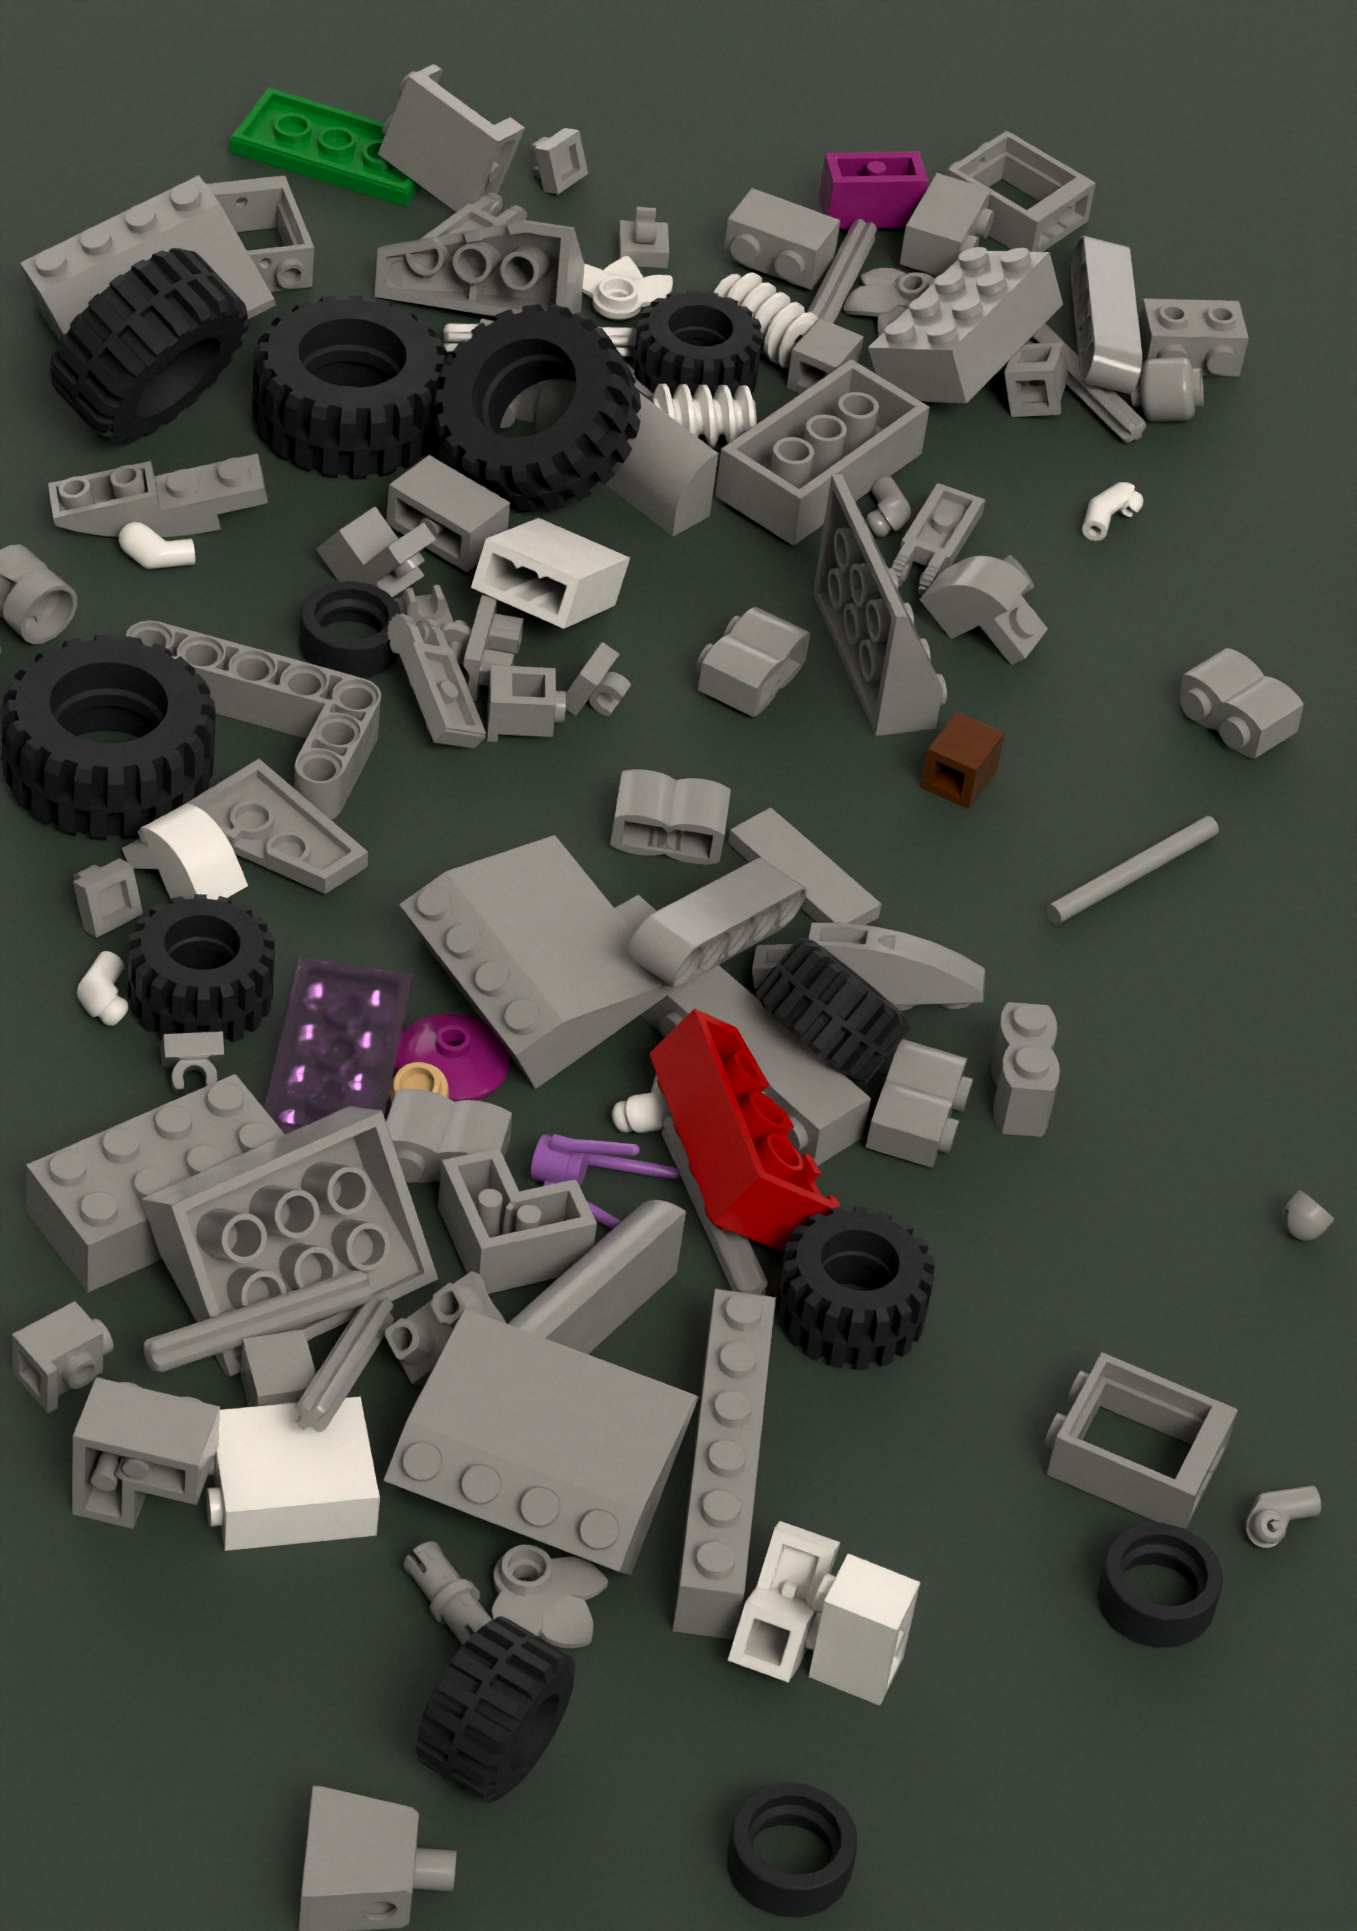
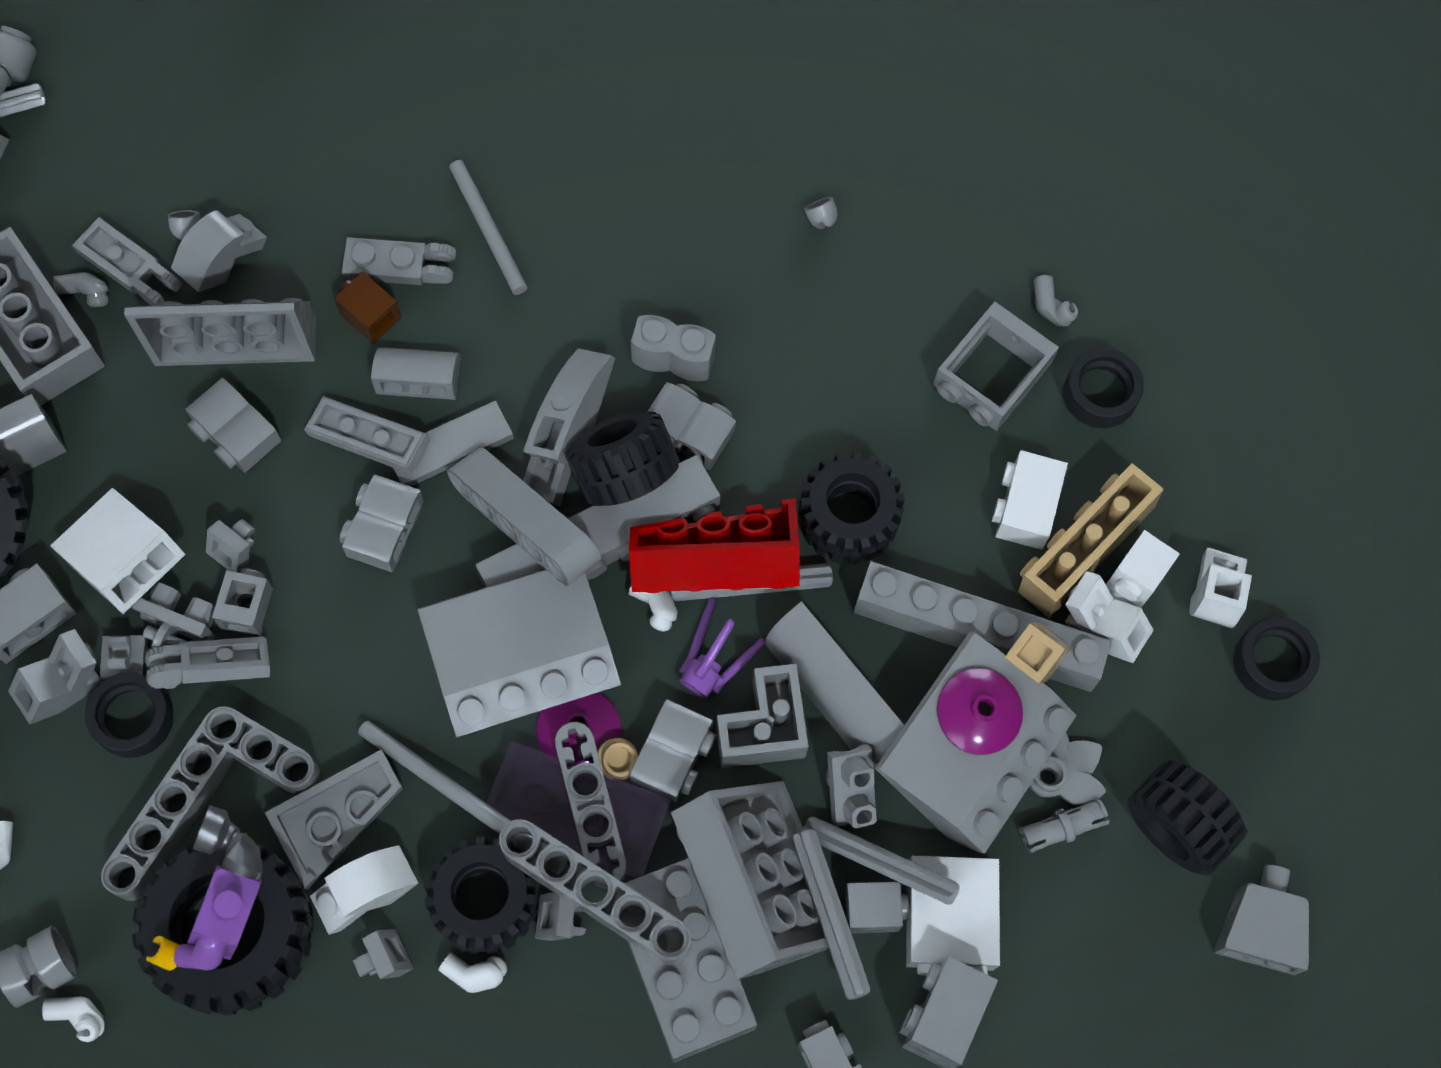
camera: 75 degrees left, 25 degrees up
(132, 675) = (225, 902): none -> torso
(221, 1036) = (583, 872): none -> light grey beam
(282, 987) = (449, 788): none -> light grey bar
(421, 1023) = (591, 804): none -> light grey beam
(577, 1437) = (963, 722): none -> magenta dish
(689, 1476) = (1038, 652): none -> tan panel
(785, 785) = (367, 435): none -> light grey tile
(870, 1751) = (1221, 588): none -> white brick
(891, 821) = (415, 373): none -> light grey brick
(944, 1507) = (1030, 500): none -> white brick
(960, 1601) = (1090, 540): none -> tan brick
(1043, 784) = (397, 261): none -> light grey hinge
(1104, 505) = (116, 135): white arm -> none
(1240, 703) = (349, 109): light grey brick -> none

